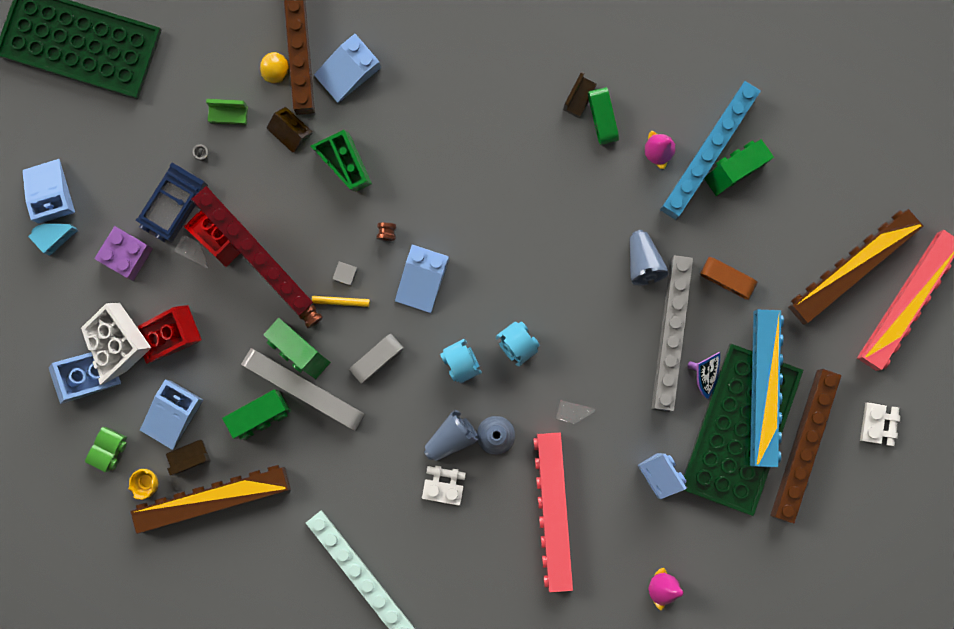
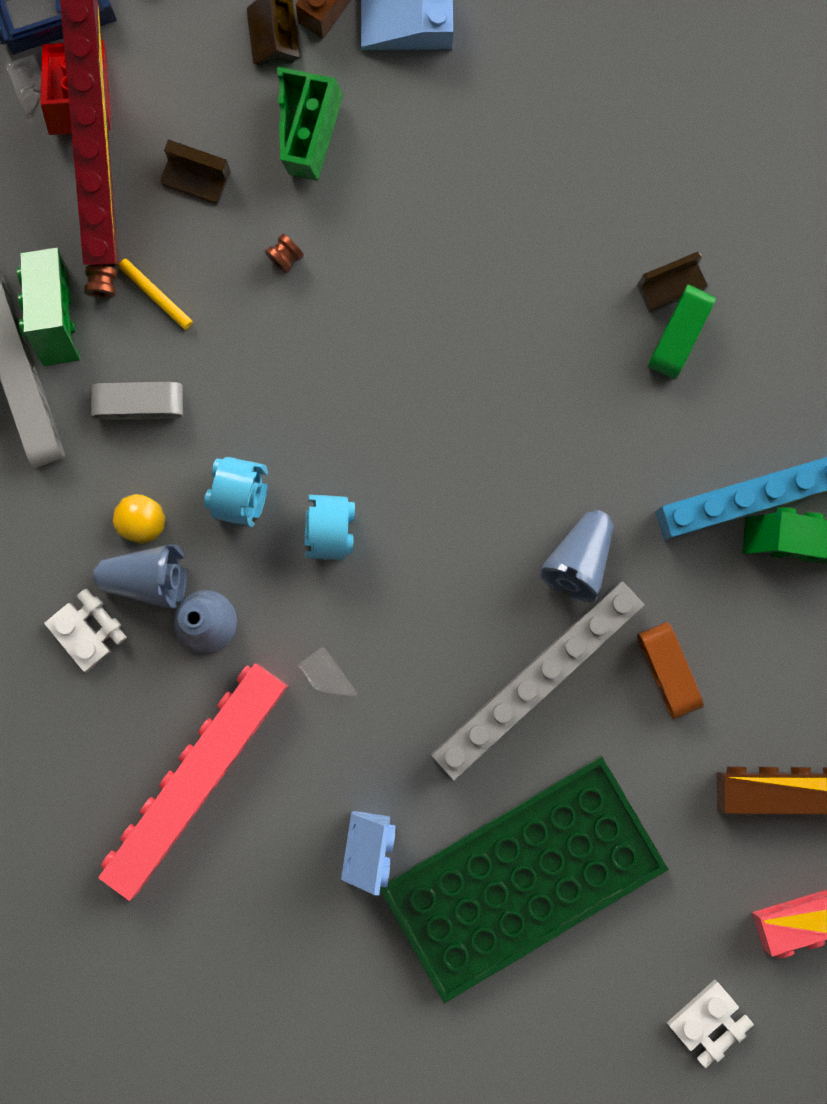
camera: 35 degrees right, 0 degrees up
(310, 228) = (195, 172): none -> dark brown panel
(344, 273) = (190, 264): light grey tile -> none
(421, 278) = (279, 347): light blue slope -> none
(424, 413) = (138, 519): none -> yellow hair
(659, 149) = (719, 433): dark pink hat -> none
(664, 589) = (250, 999): dark pink hat -> none
(706, 373) = (538, 769): shield -> none
(766, 388) = (598, 853): dark azure brick -> none
(805, 446) = (588, 971): reddish brown brick -> none

